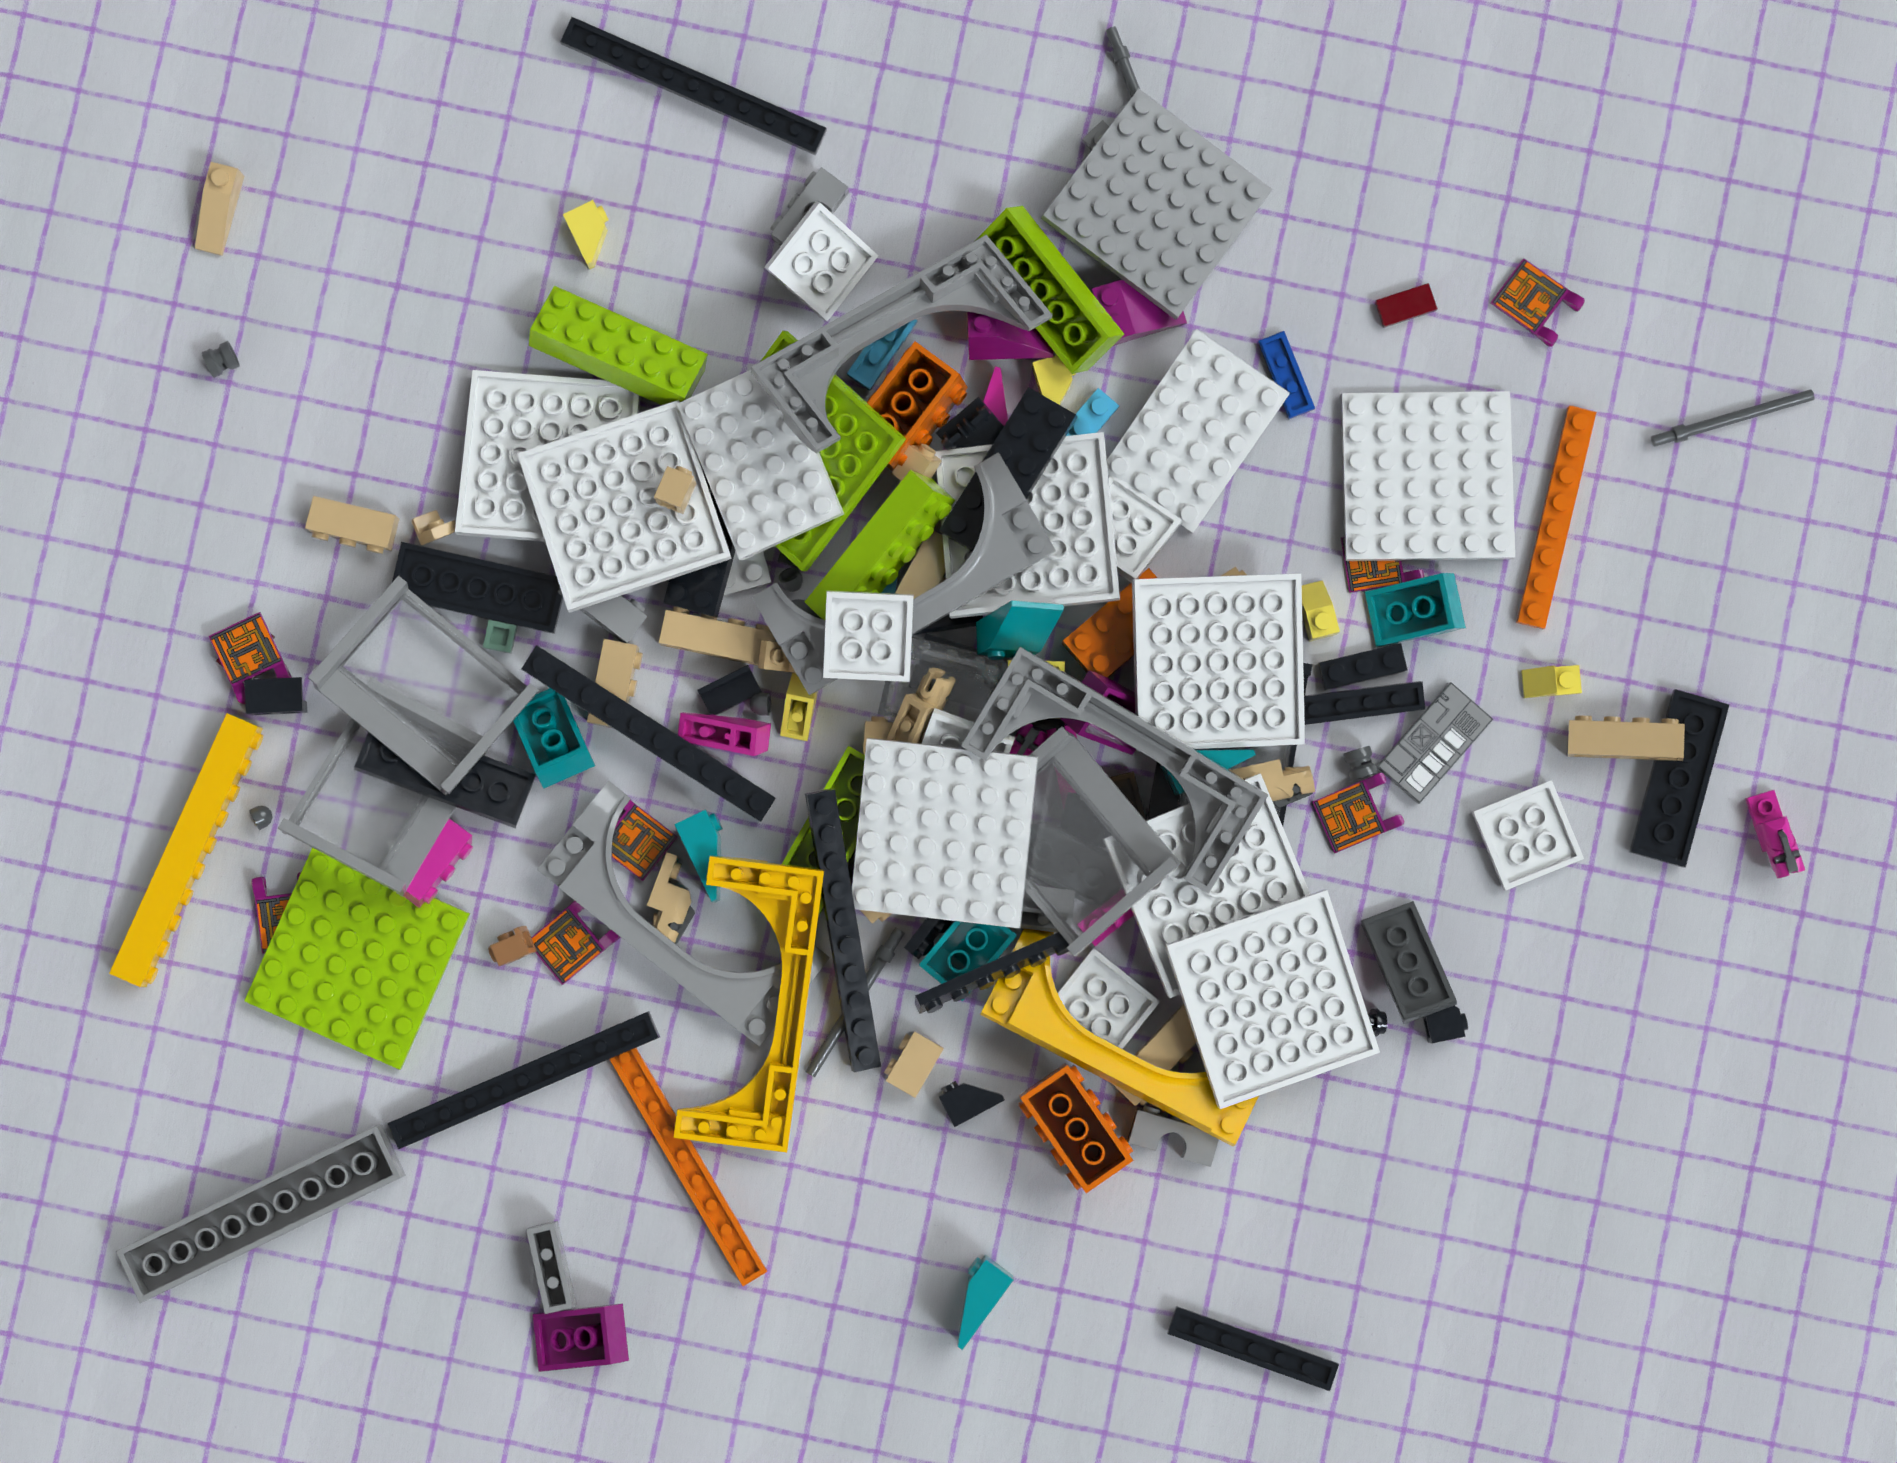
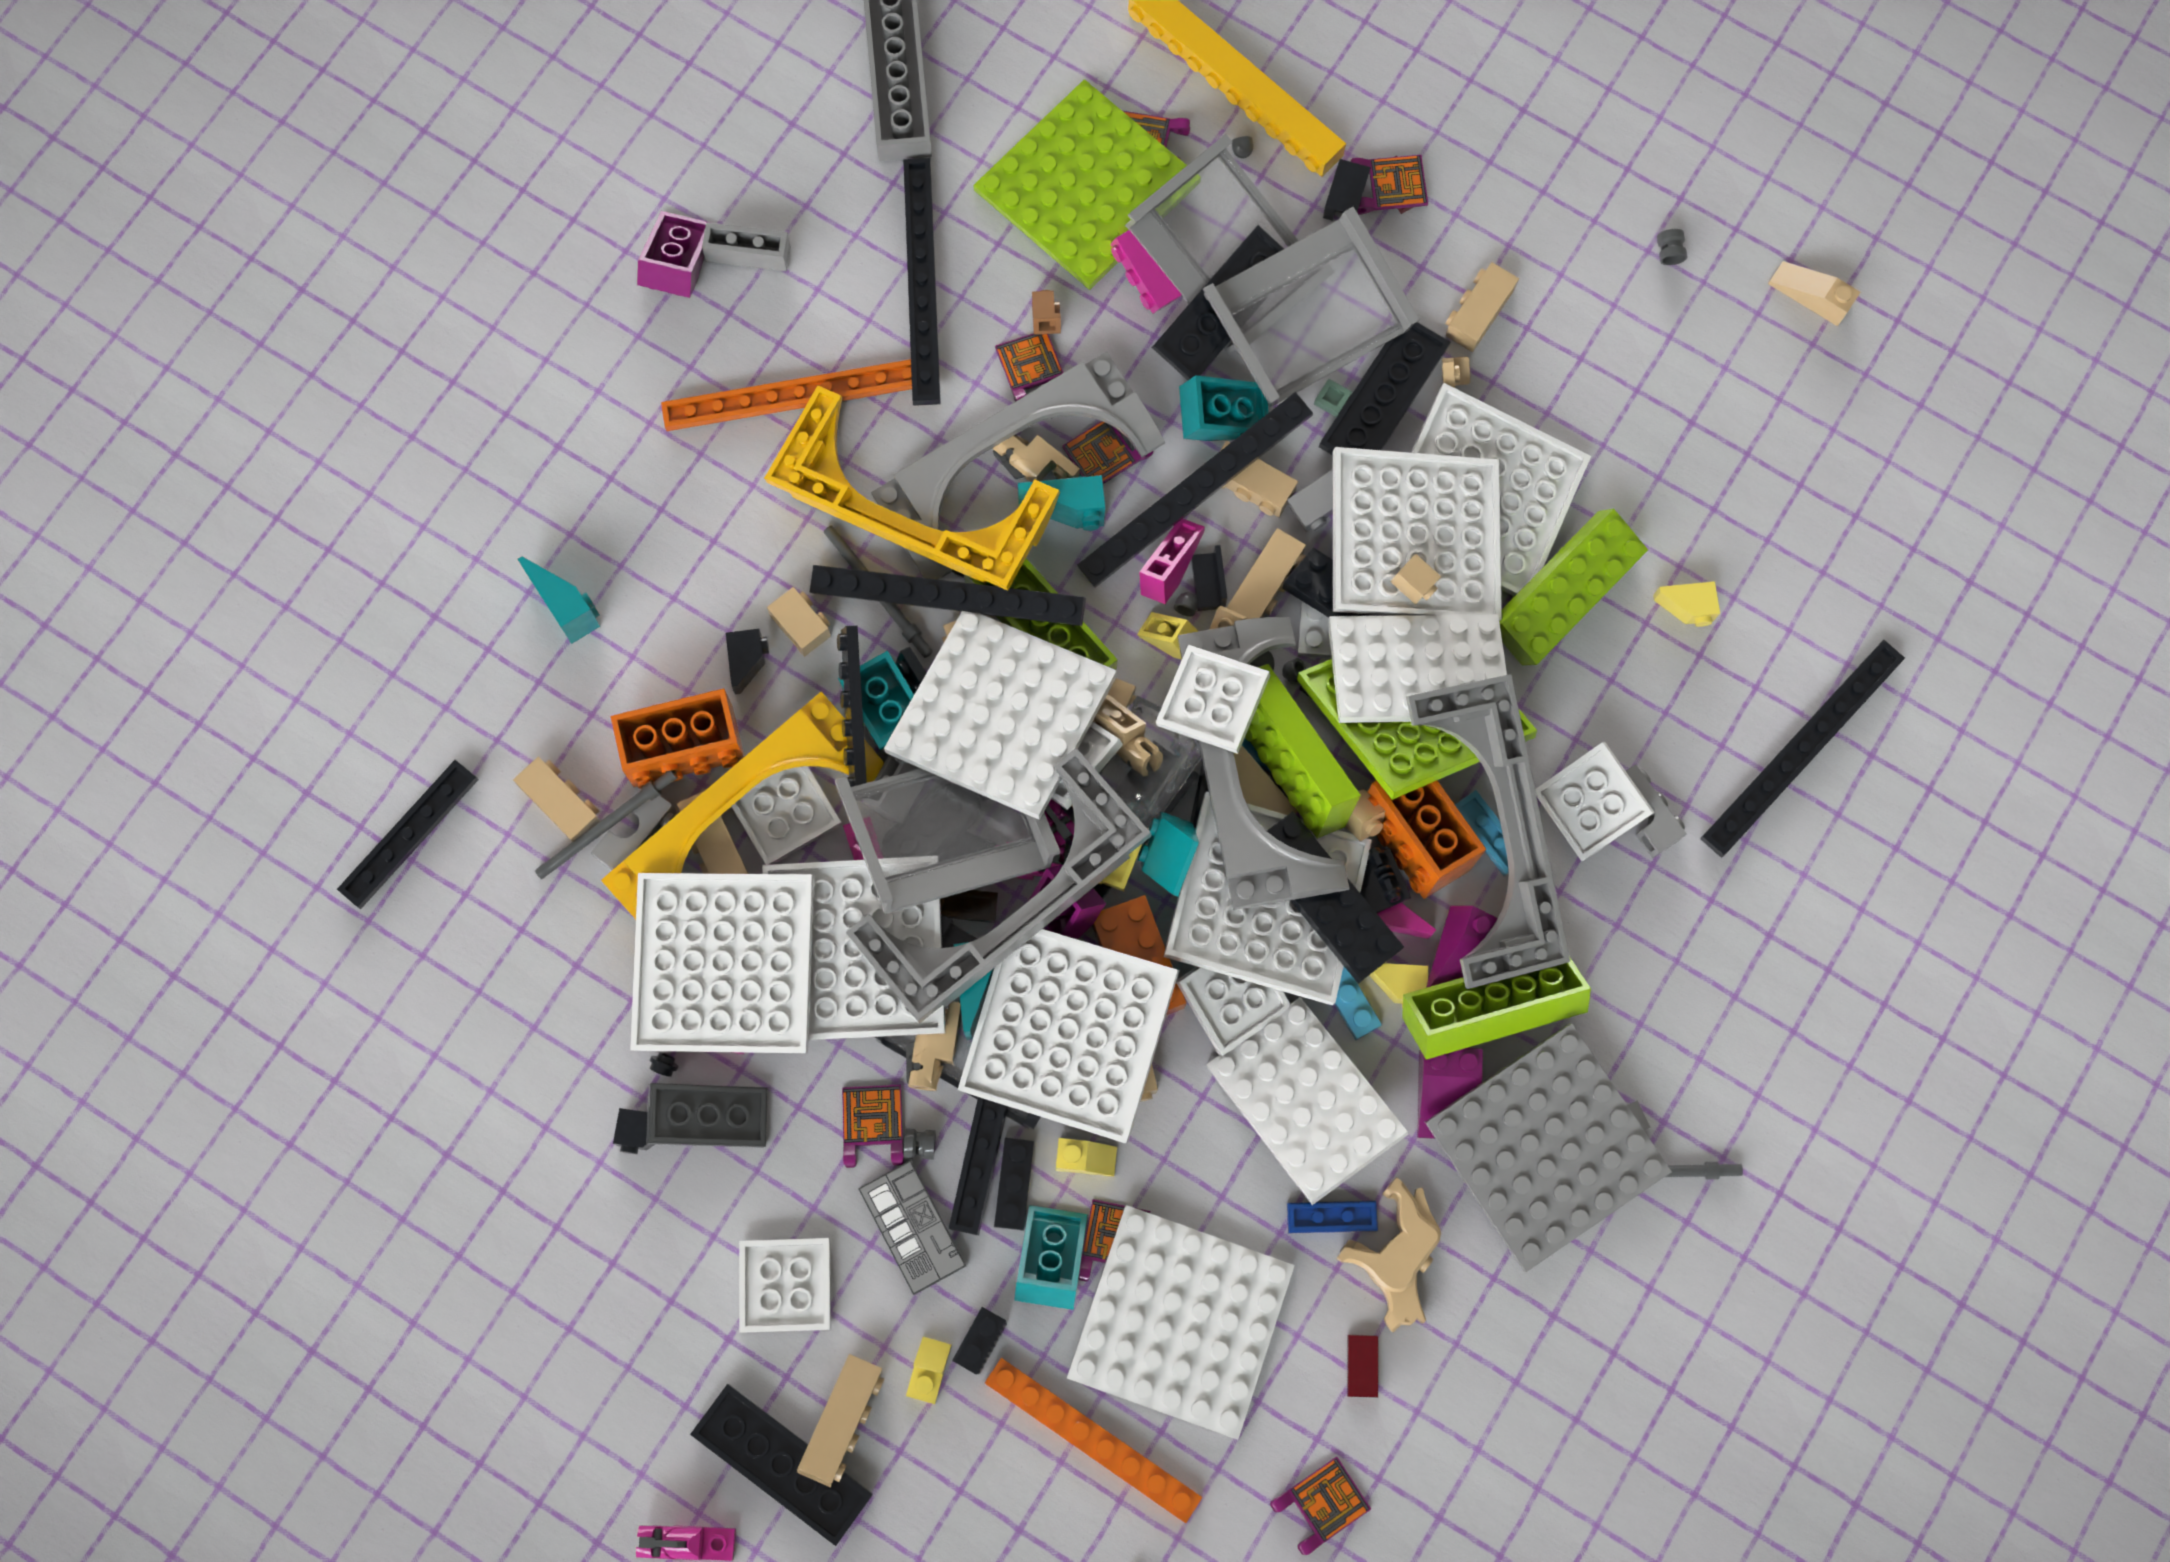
camera: 110 degrees right, 10 degrees down
(1136, 1133) = (649, 791): none -> dark grey bar
(1169, 1221) = (557, 798): none -> tan brick
(1301, 302) = (1397, 1263): none -> tan animal
(1512, 644) = (979, 1341): none -> black brick

